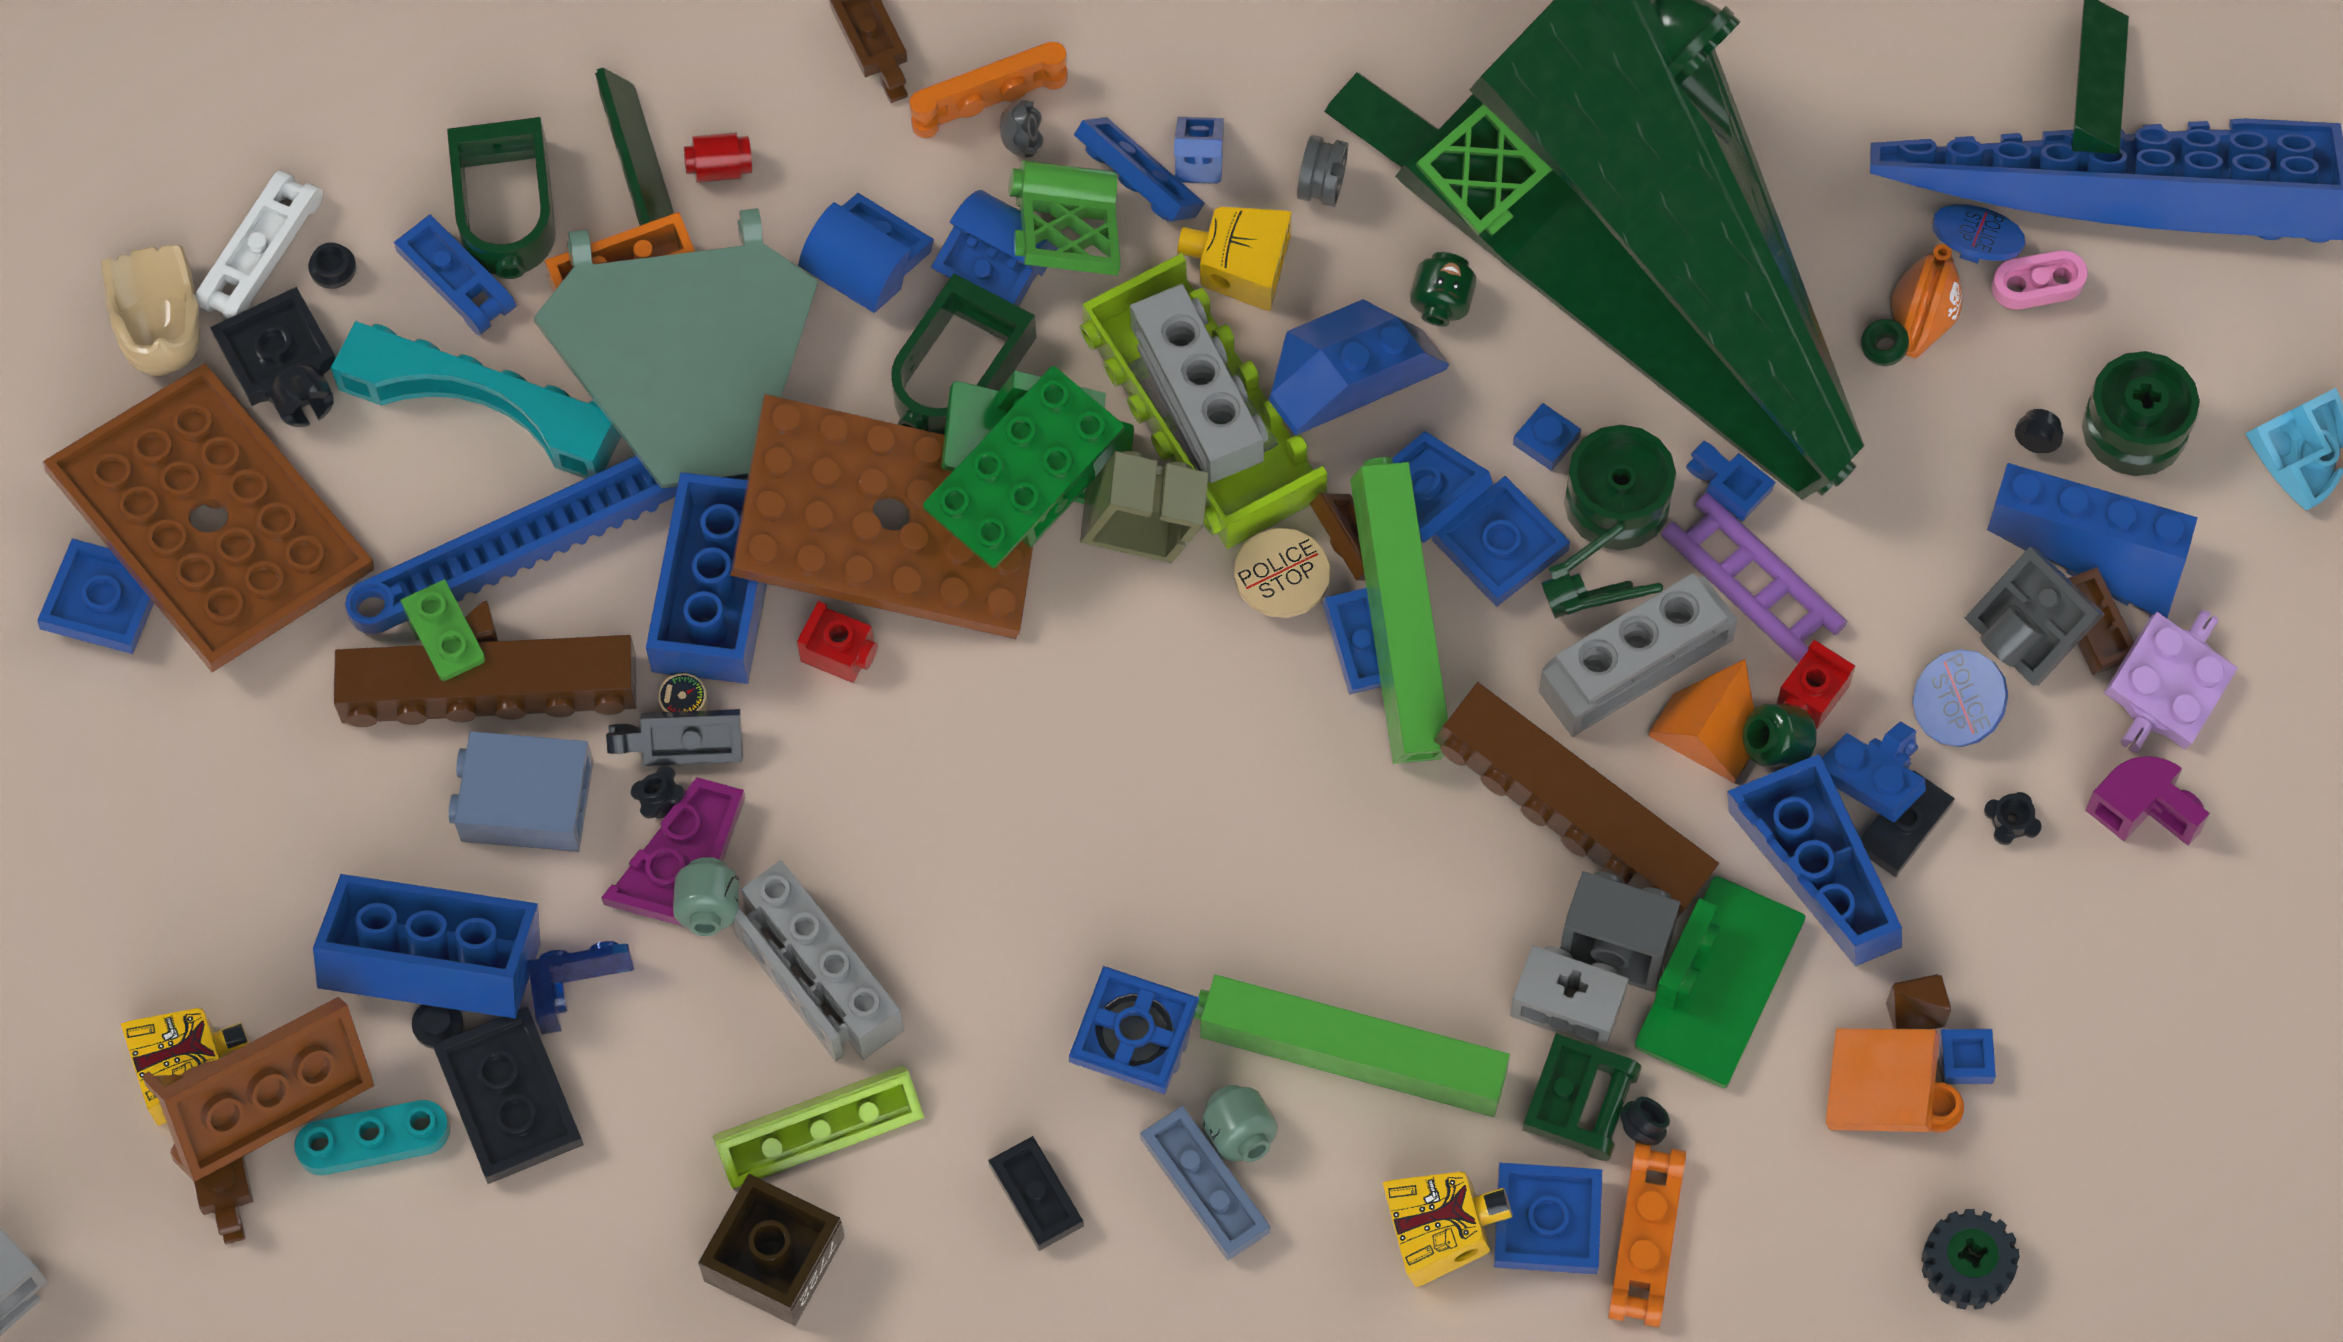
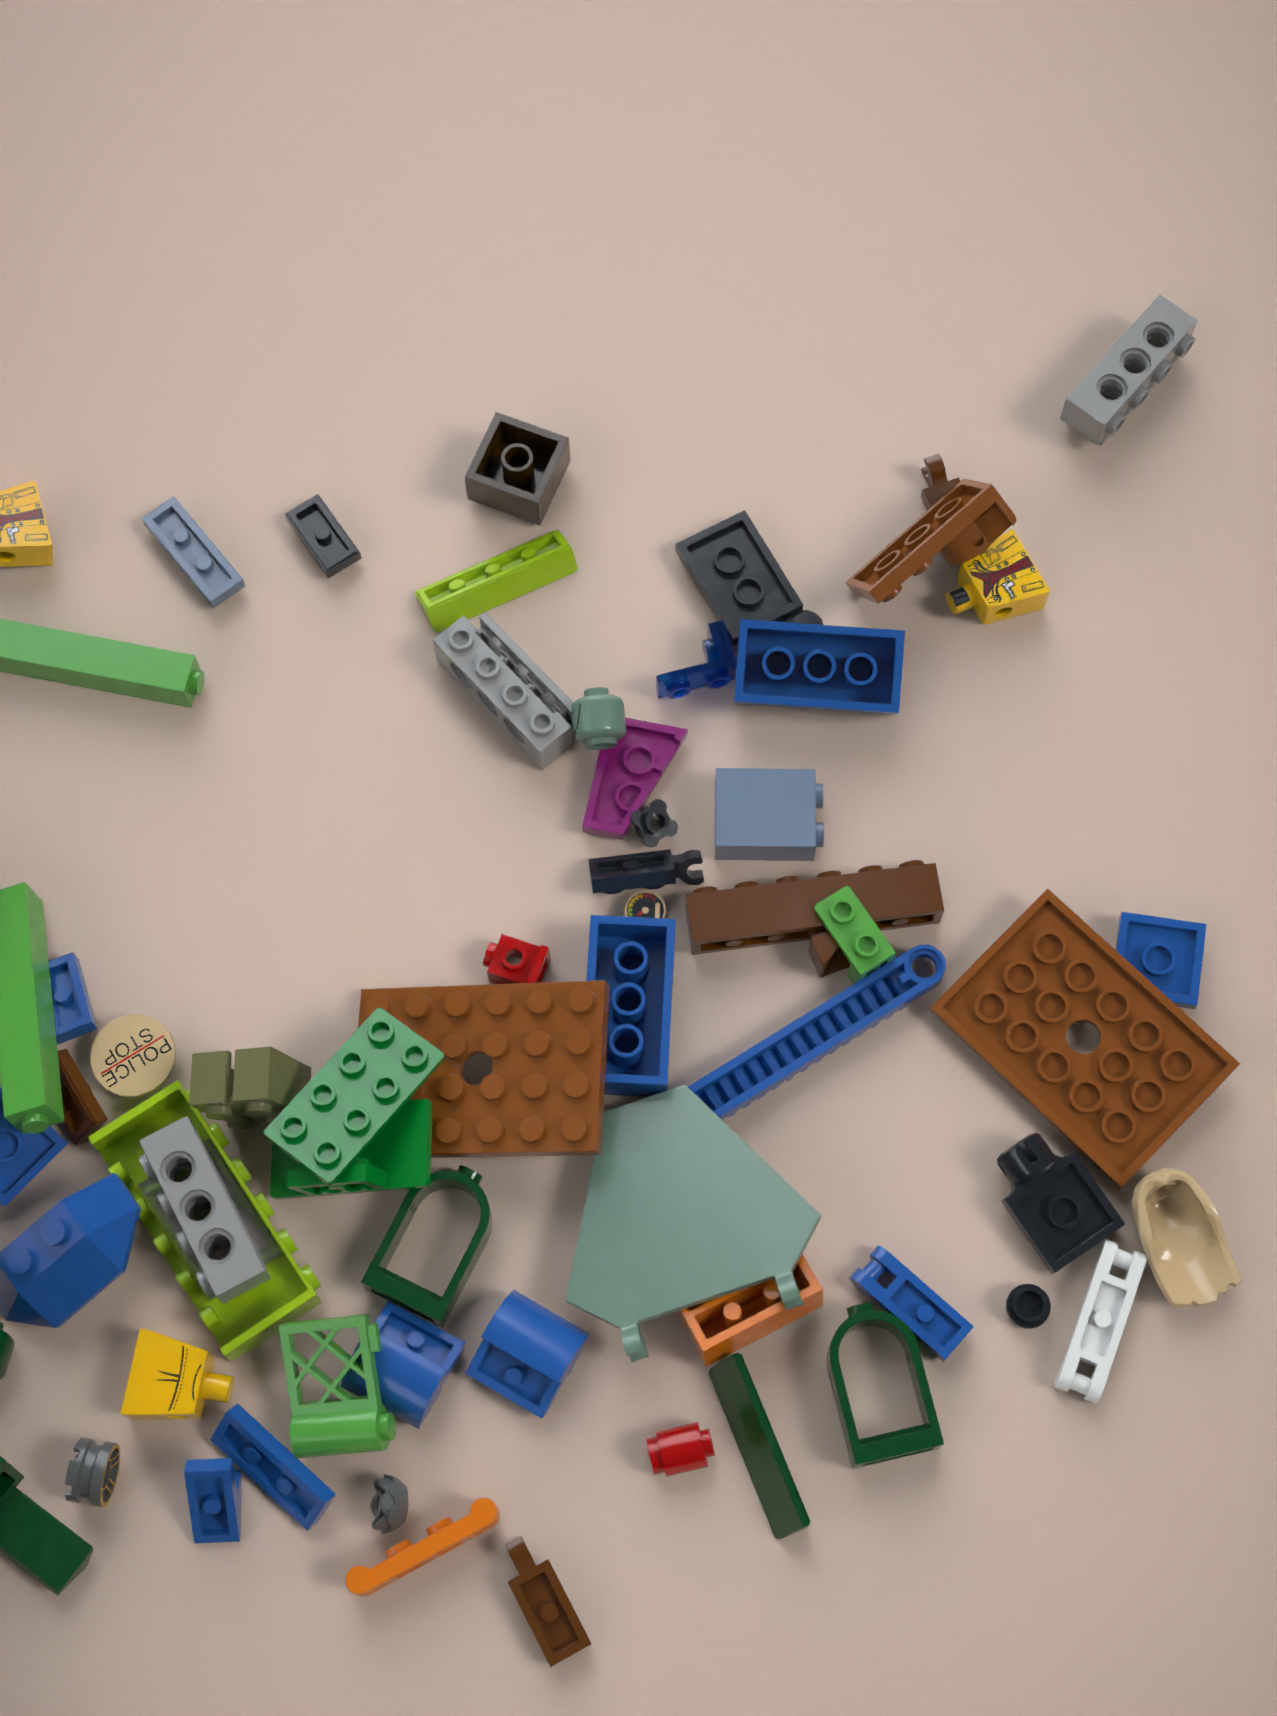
camera: 175 degrees right, 5 degrees up
(391, 368) = (954, 1198): teal arch -> none
(394, 1142) = (827, 555): teal plate -> none
(1134, 1033) = (245, 649): blue piece -> none
(1239, 1122) = (165, 592): sand green head -> none

